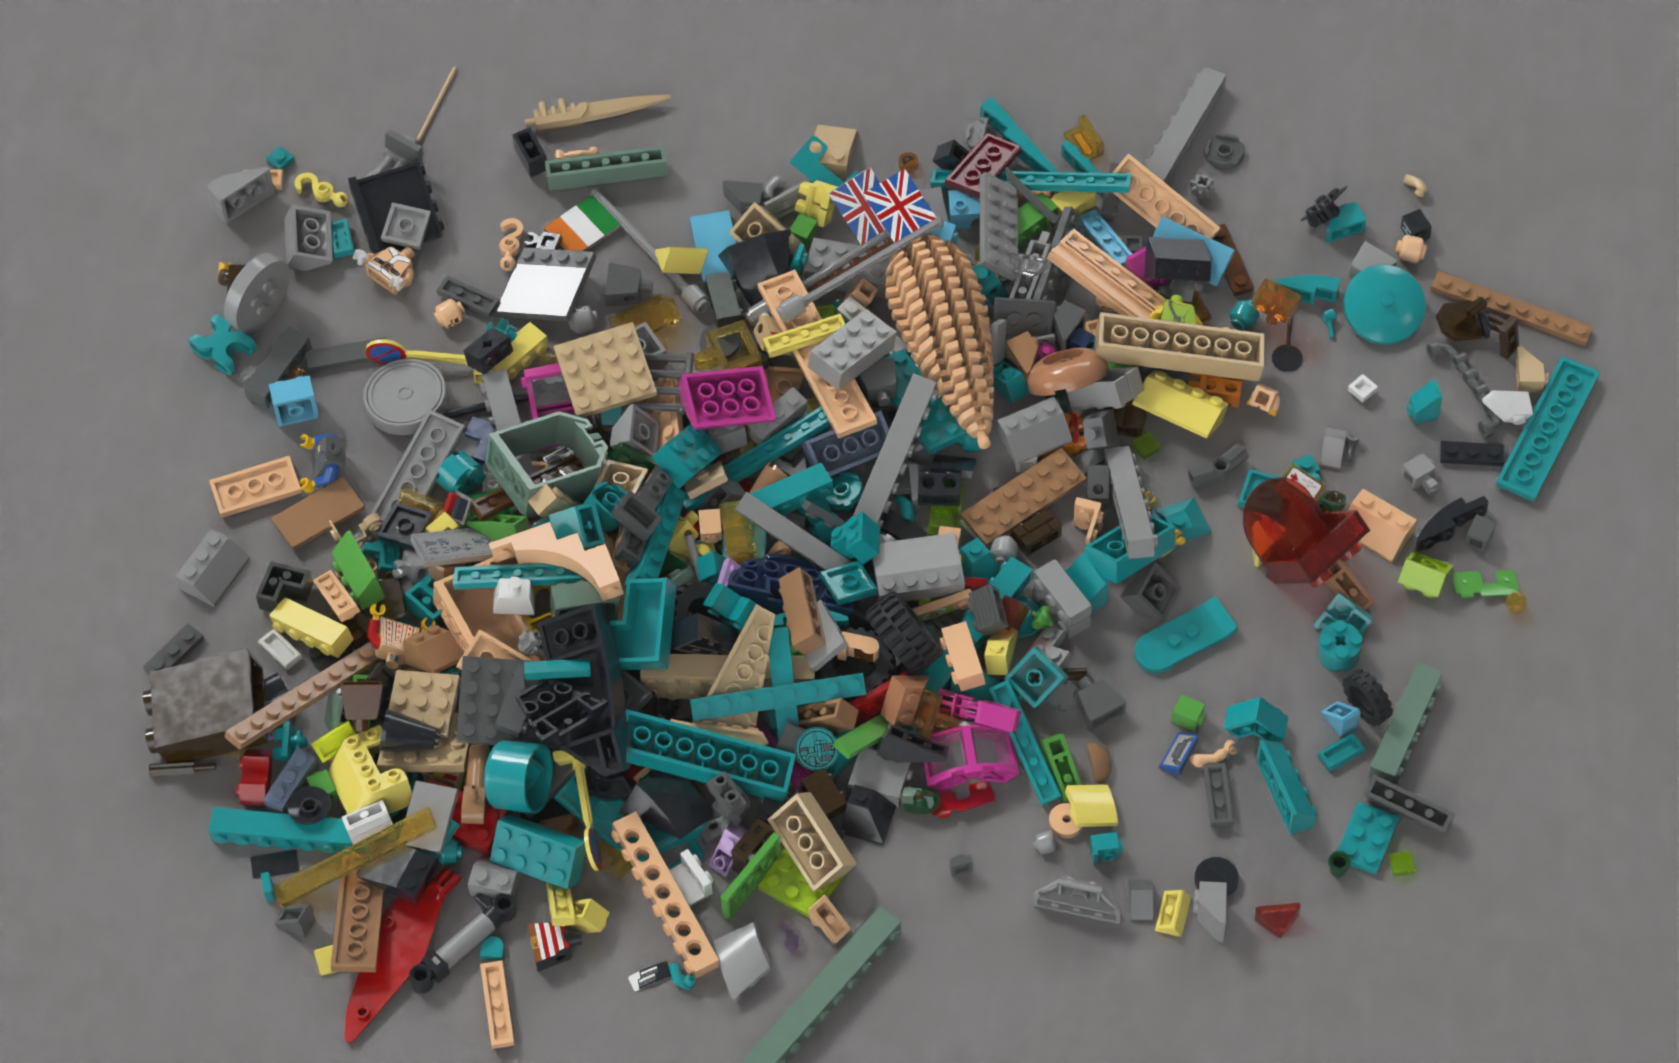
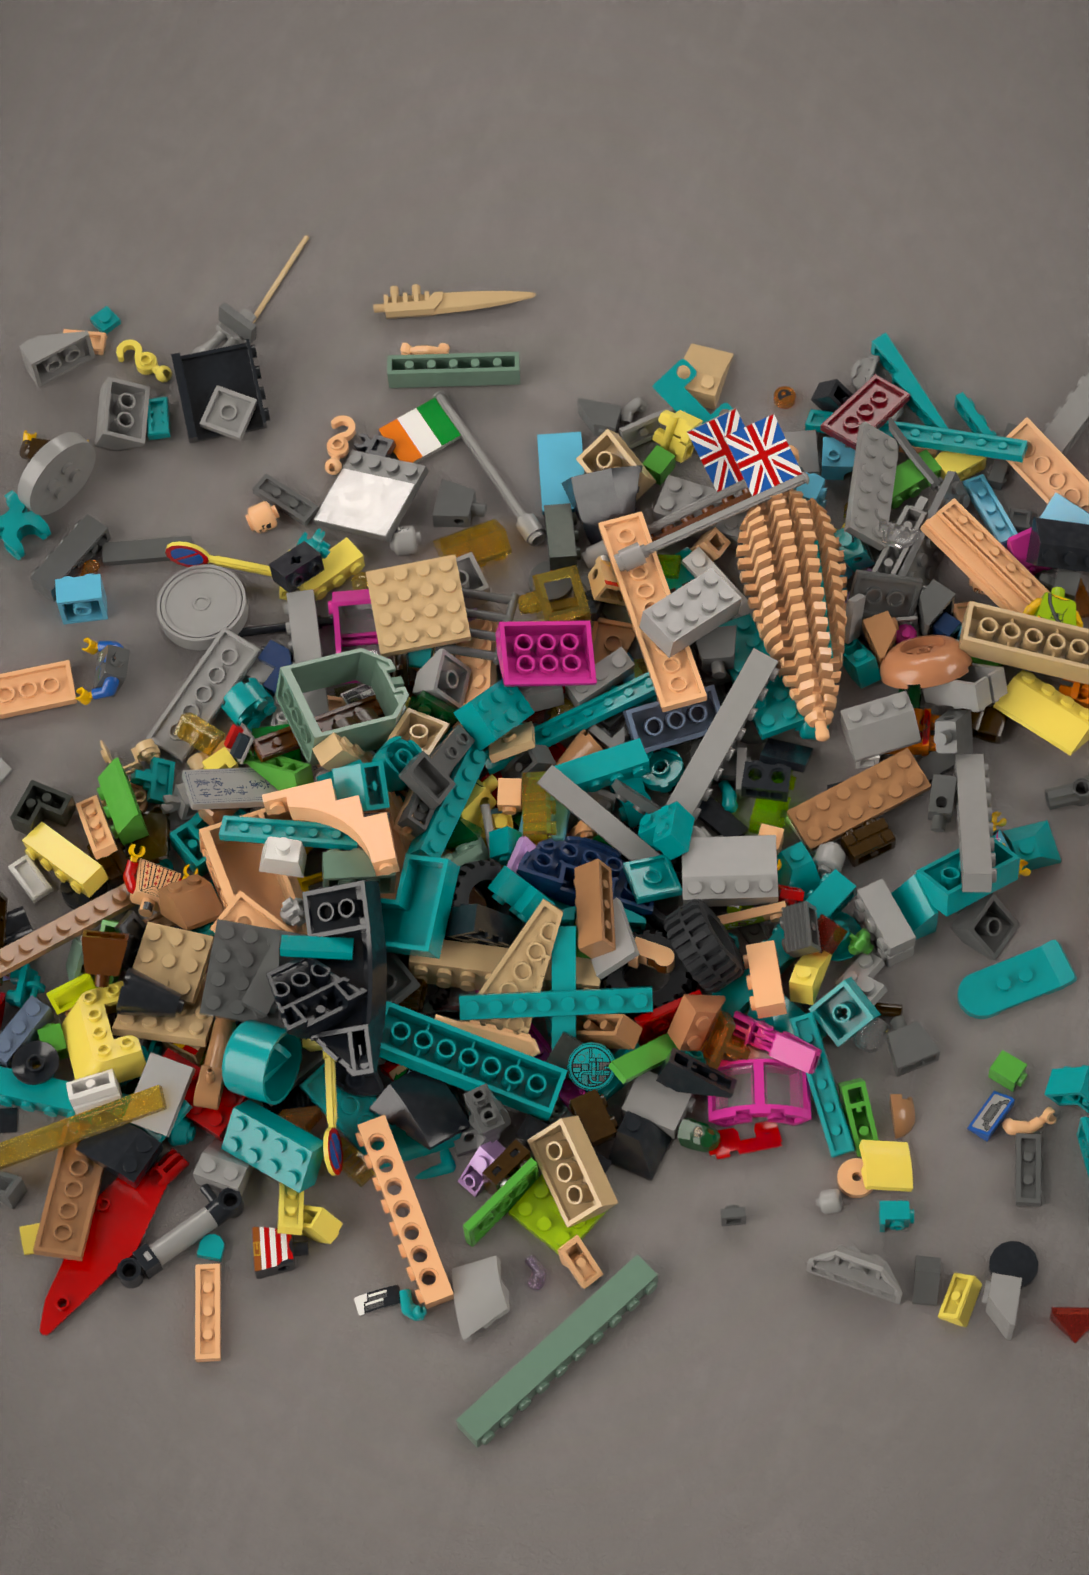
camera: 10 degrees right, 5 degrees up
(312, 515) = (83, 730): medium nougat tile -> none
(388, 267) = (204, 457): torso -> none
(403, 522) = (180, 753): black plate -> none
(529, 151) = (373, 341): black brick -> none
(681, 259) = (520, 484): light yellow slope -> none
(691, 879) = (434, 1197): white bracket -> none
(799, 259) = (648, 499): teal slope -> none
(802, 336) = (639, 589): light yellow tile -> none
(1086, 139) = (983, 392): clear yellow panel -> none
(1088, 516) = (927, 830): light nougat bracket -> none
(1146, 445) = (1003, 754): clear neon green tile -> none

